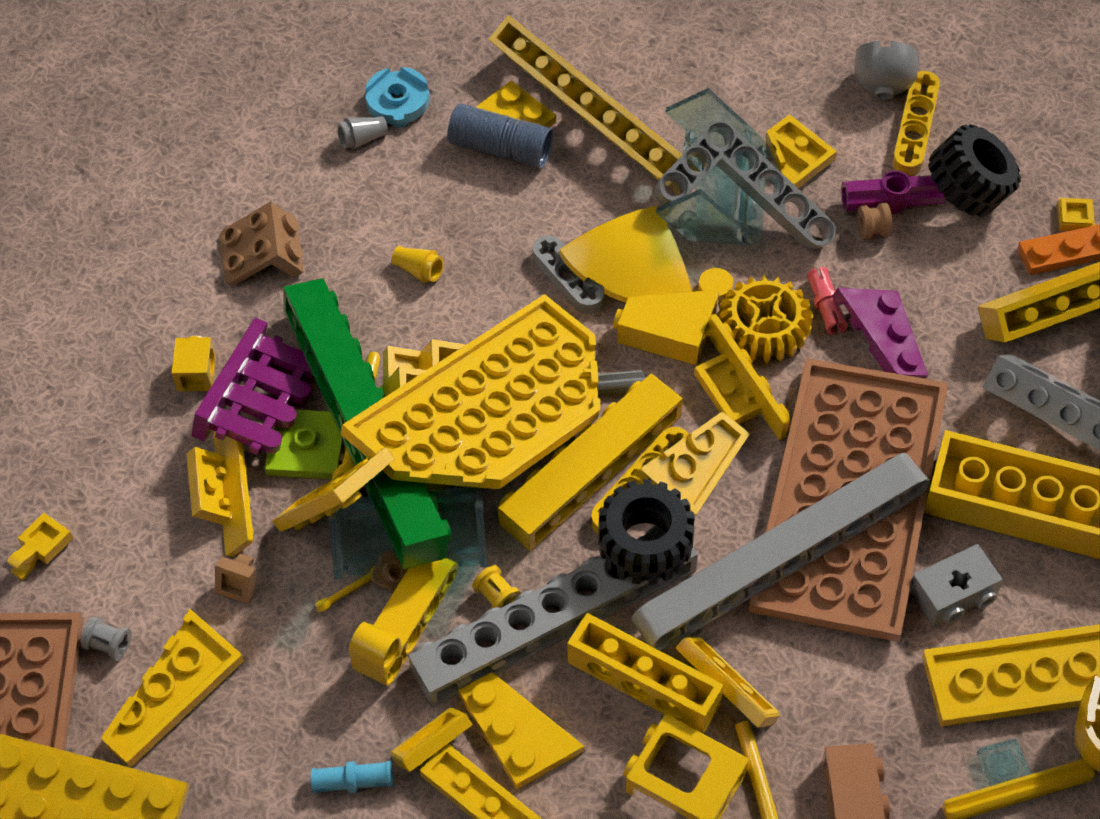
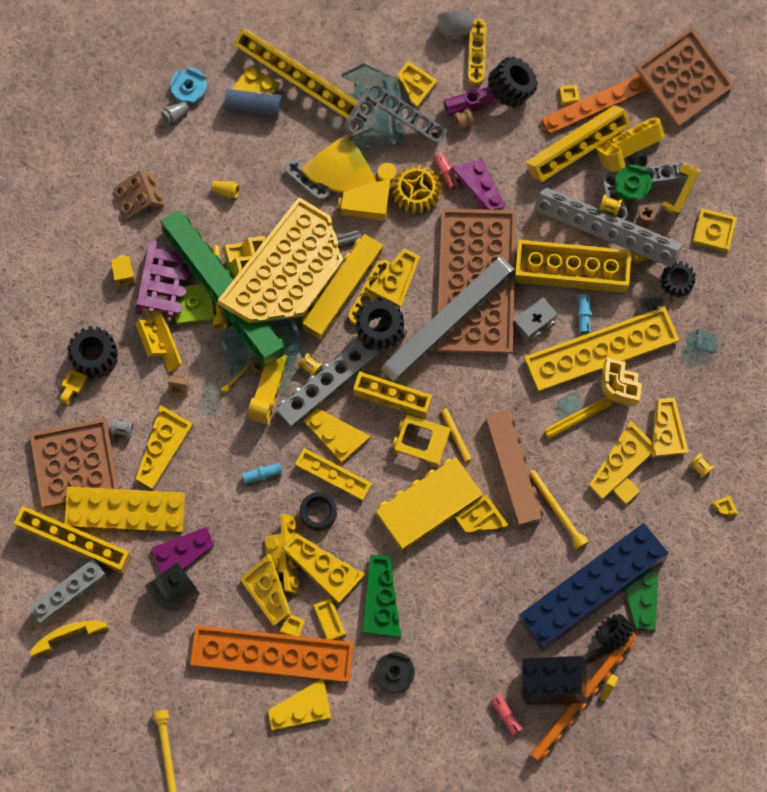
camera: 15 degrees left, 15 degrees up
(86, 467) = (86, 339): none -> black tyre
(333, 495) = (220, 336): yellow wing -> none
(430, 739) = (296, 447): yellow tile -> none
(735, 688) = (429, 387): yellow tile -> none
(736, 385) = (407, 230): yellow bracket -> none
(1055, 592) = (584, 314): none -> medium azure pin

